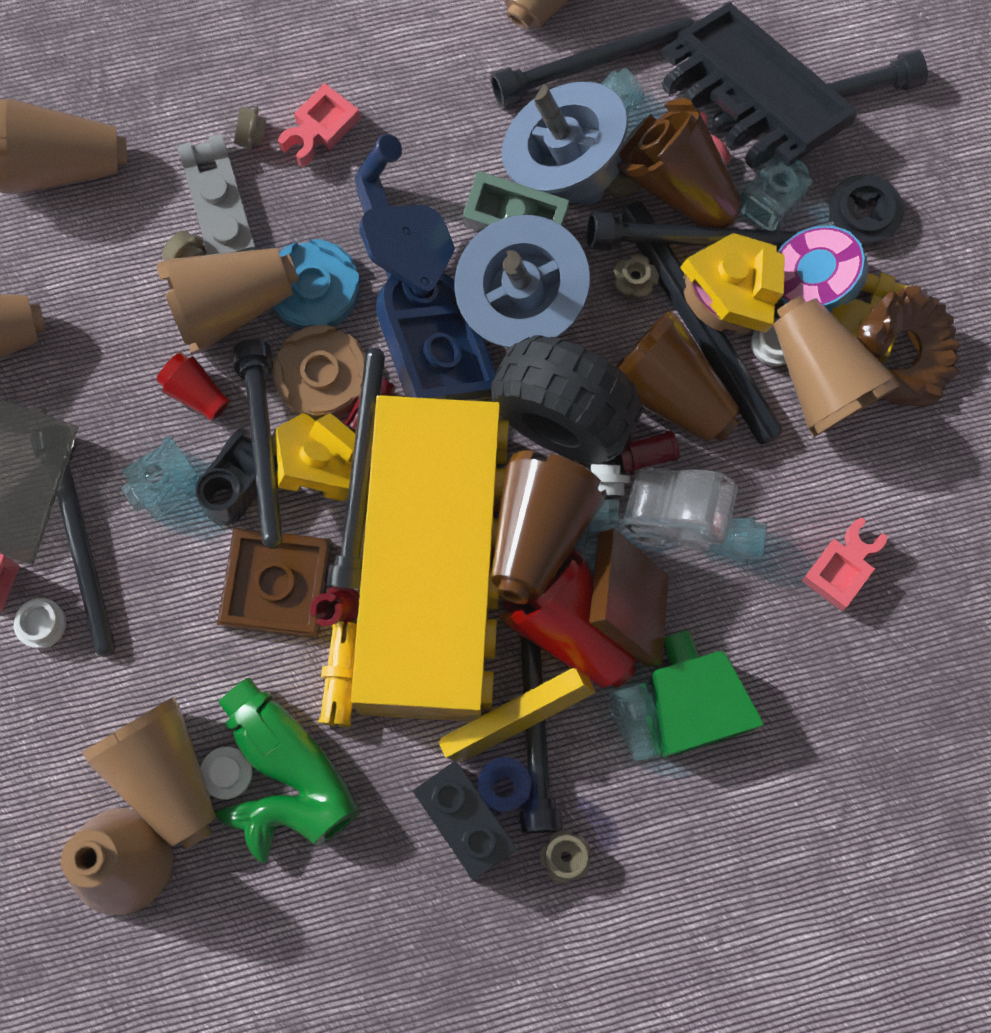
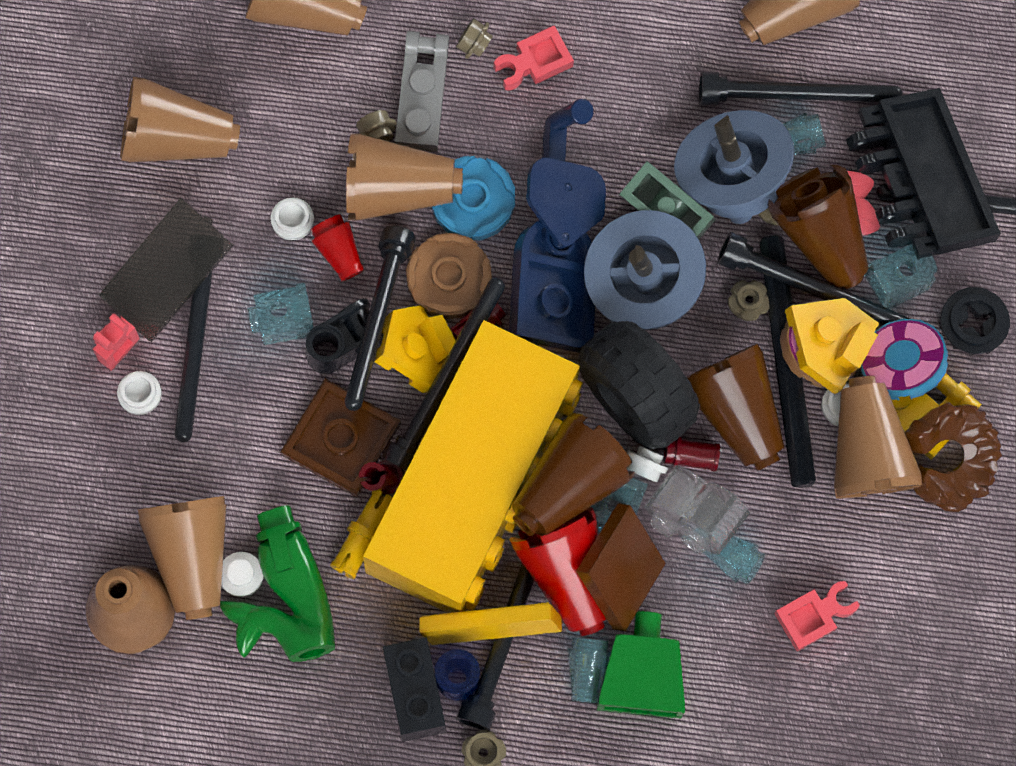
camera: 20 degrees right, 0 degrees up
(133, 377) = (292, 218): none -> white plate

